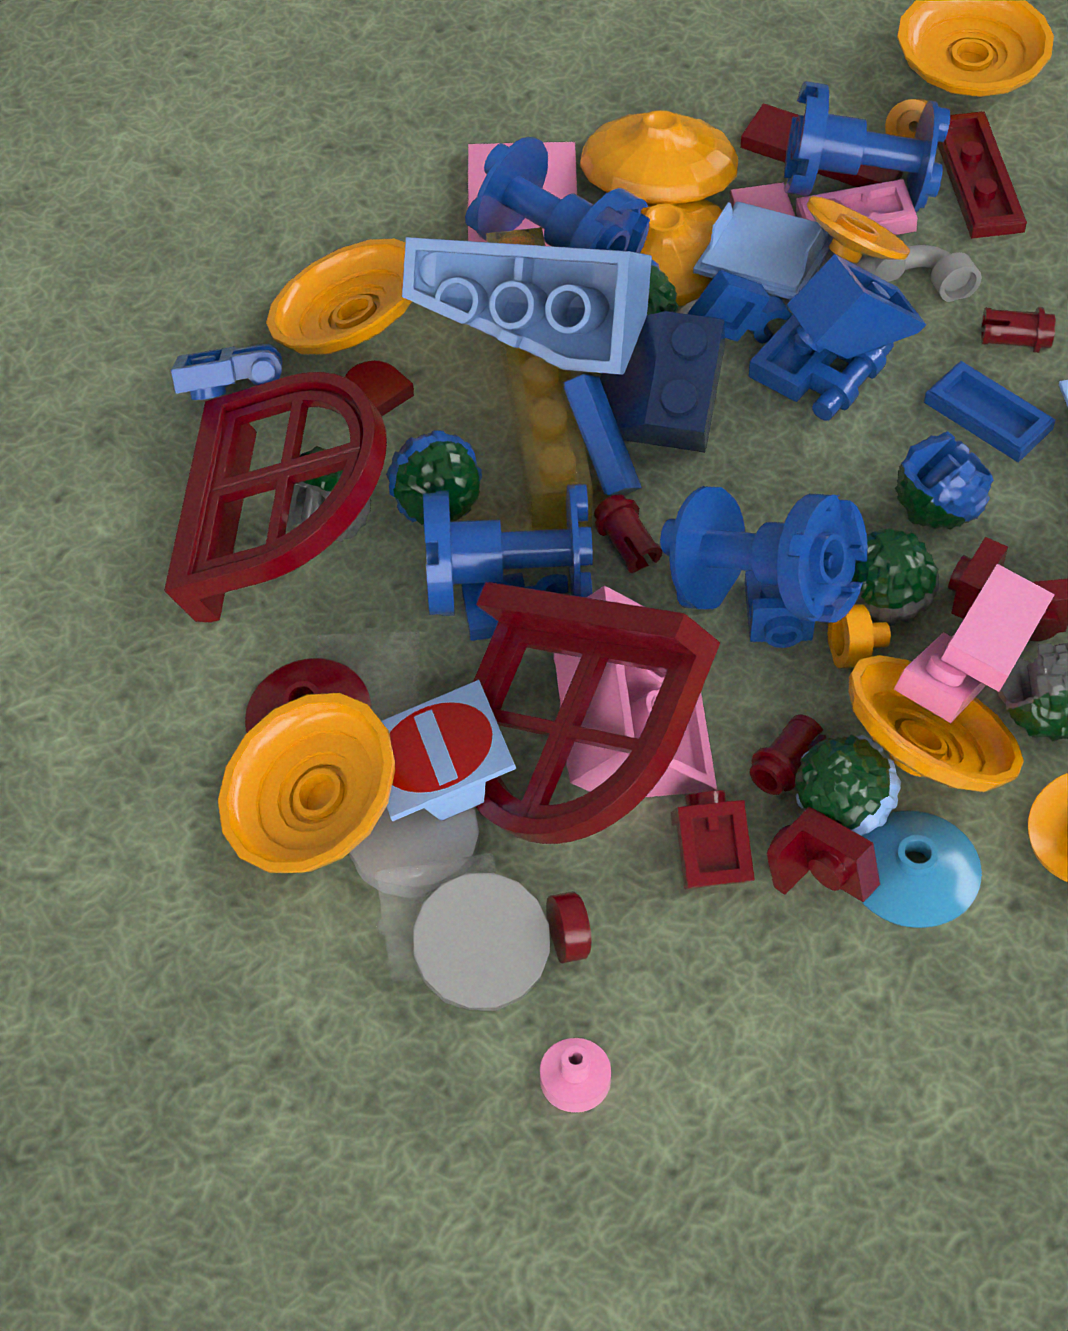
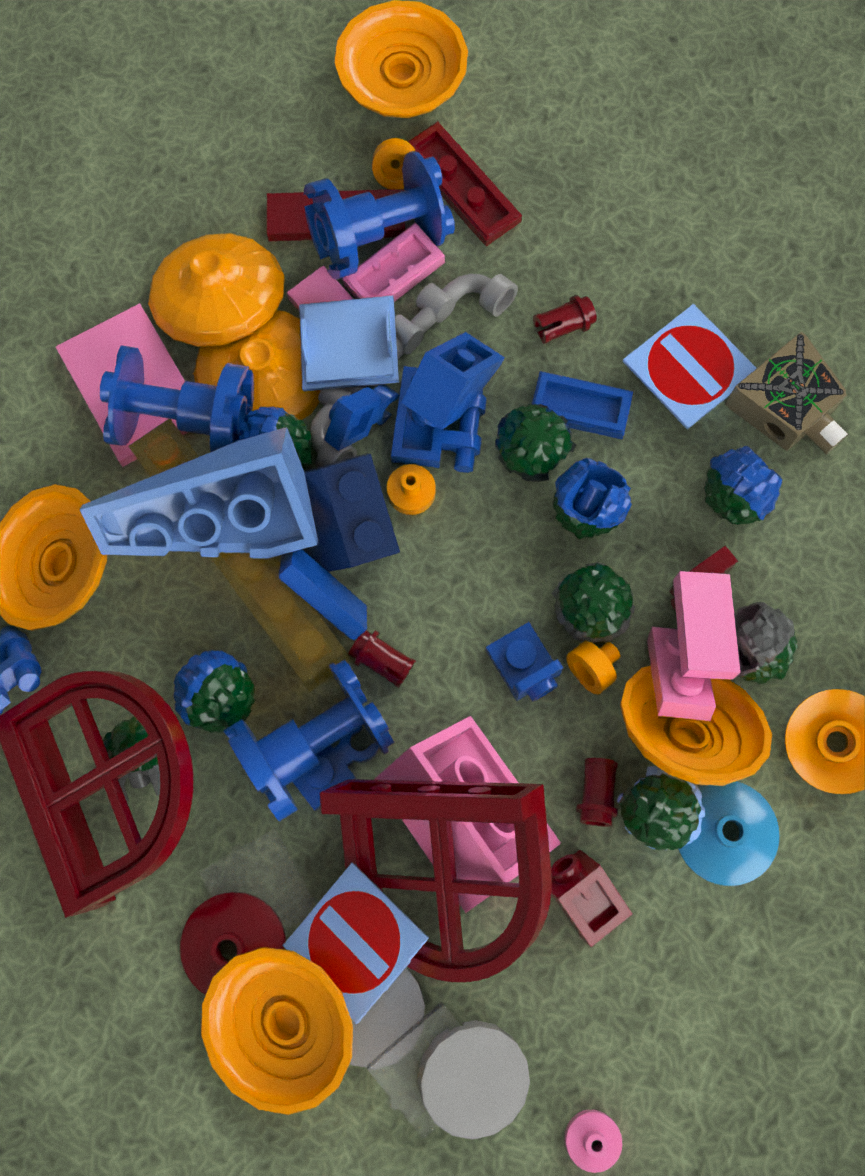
camera: 30 degrees left, 20 degrees up
(381, 384) = (114, 621): dark red tile -> none
(569, 926) = (527, 1028): dark red tile -> none
(754, 406) = (411, 489): none -> light orange tile
(805, 556) = (539, 644): blue piece -> none
(828, 850) = (681, 869): dark red bracket -> none
(855, 233) = (414, 299): light orange dish -> none
(910, 406) = (533, 441): none -> dark green piece
(973, 573) = (653, 569): dark red plate -> none

